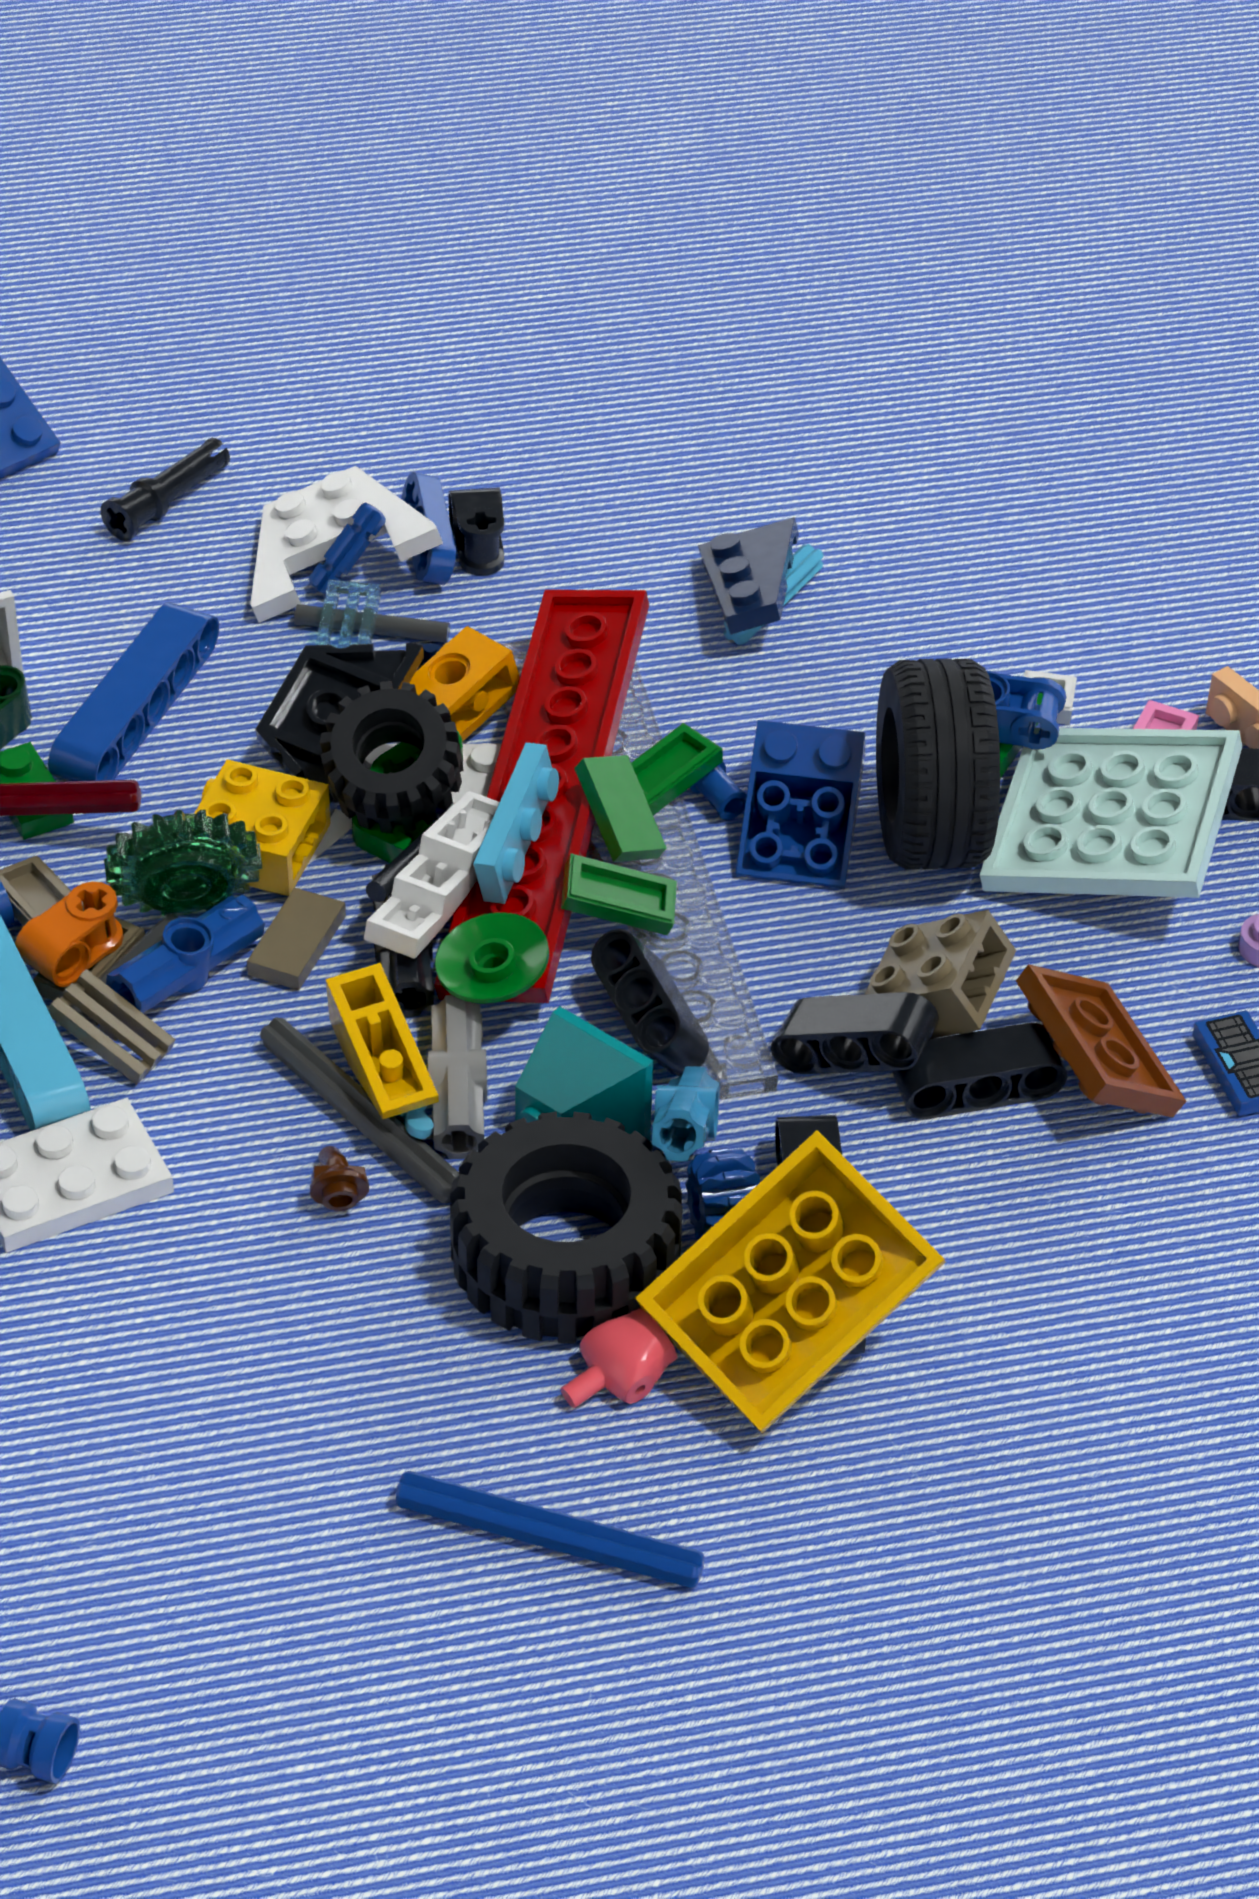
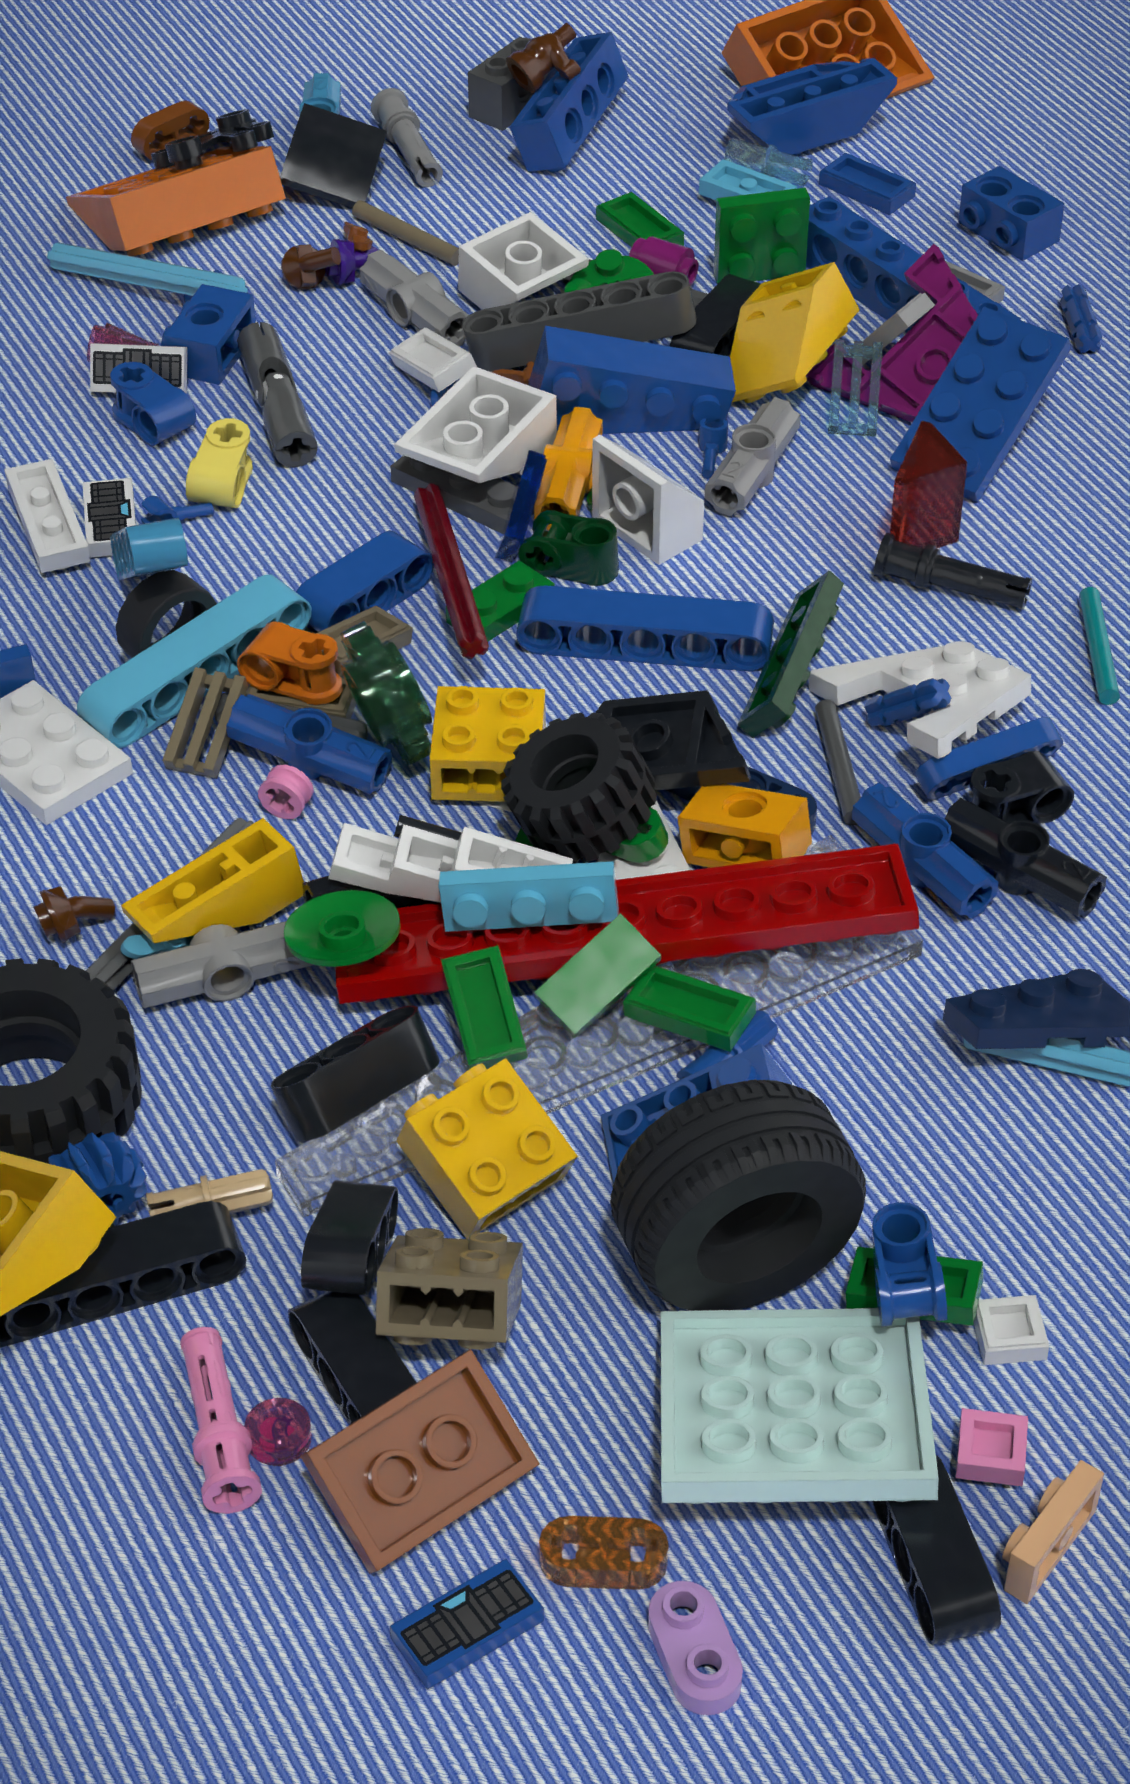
camera: 75 degrees right, 0 degrees up
(65, 456) = (929, 491): none -> clear red slope
(239, 989) = (285, 792): none -> bright pink bush
(242, 614) = (790, 656): none -> plate
(296, 938) = (371, 811): dark tan tile -> none
(303, 432) = (1099, 646): none -> teal bar
(354, 591) = (808, 740): clear light blue tile -> none
(515, 594) = (926, 850): none -> blue piece
(559, 542) = (1024, 859): none -> black piece
(585, 1072) = (210, 1044): teal slope -> none
(686, 1113) = (178, 1118): dark azure piece -> none
(753, 1125) = (236, 1192): none -> tan axle
(785, 927) = (485, 1146): none -> yellow brick
(1018, 1143) = (279, 1431): none -> clear pink tile
(1030, 1174) = (221, 1442): none -> bright pink pin
(1188, 967) = (603, 1552): none -> clear orange beam

